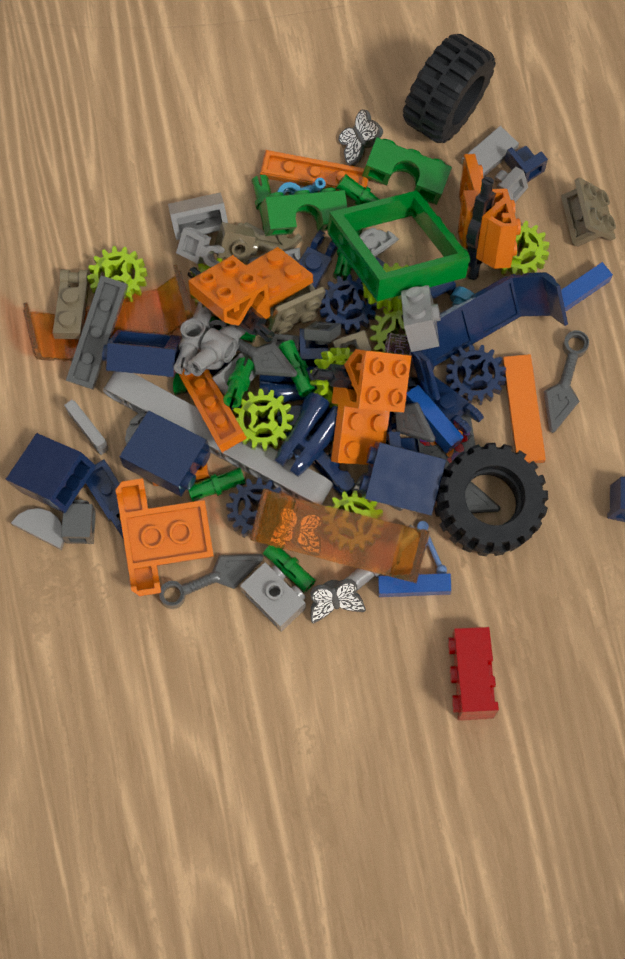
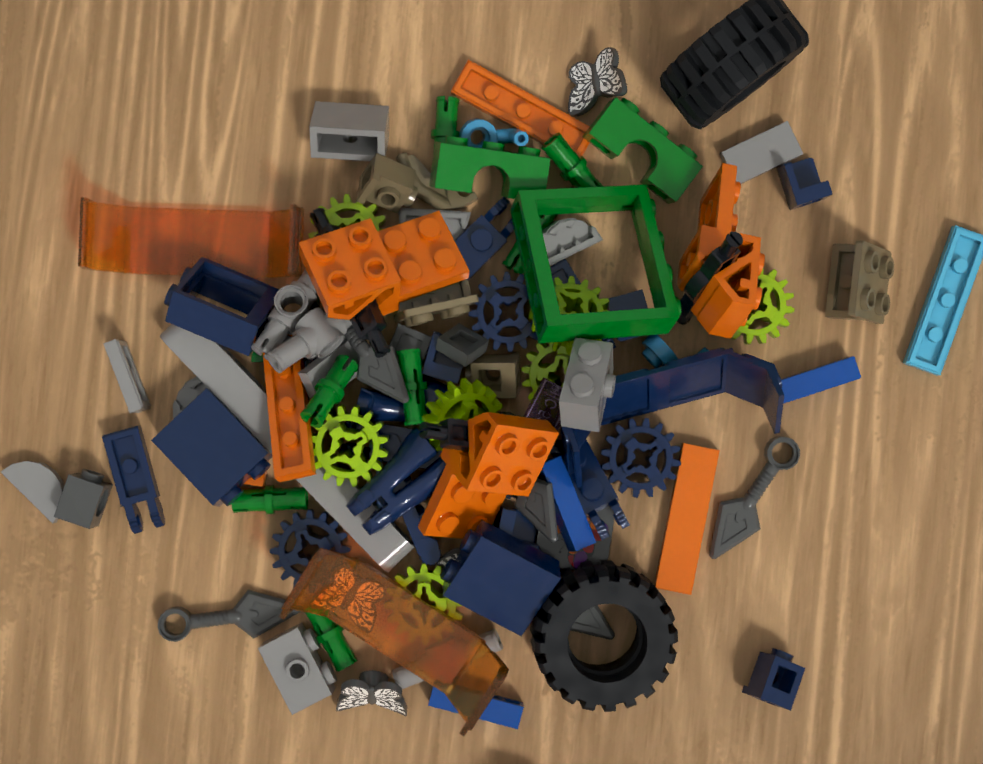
camera: 10 degrees right, 15 degrees up
(51, 472) = (62, 429): dark blue brick -> none
(71, 304) = (152, 202): dark tan plate -> none
(96, 332) = (173, 254): dark grey plate -> none
(120, 266) = (234, 172): lime gear -> none
(159, 535) = (177, 552): orange piece -> none
(196, 247) = (332, 179): light grey plate -> none
(441, 569) = (515, 691): medium blue hinge -> none
(513, 181) = (773, 211): light grey tile -> none

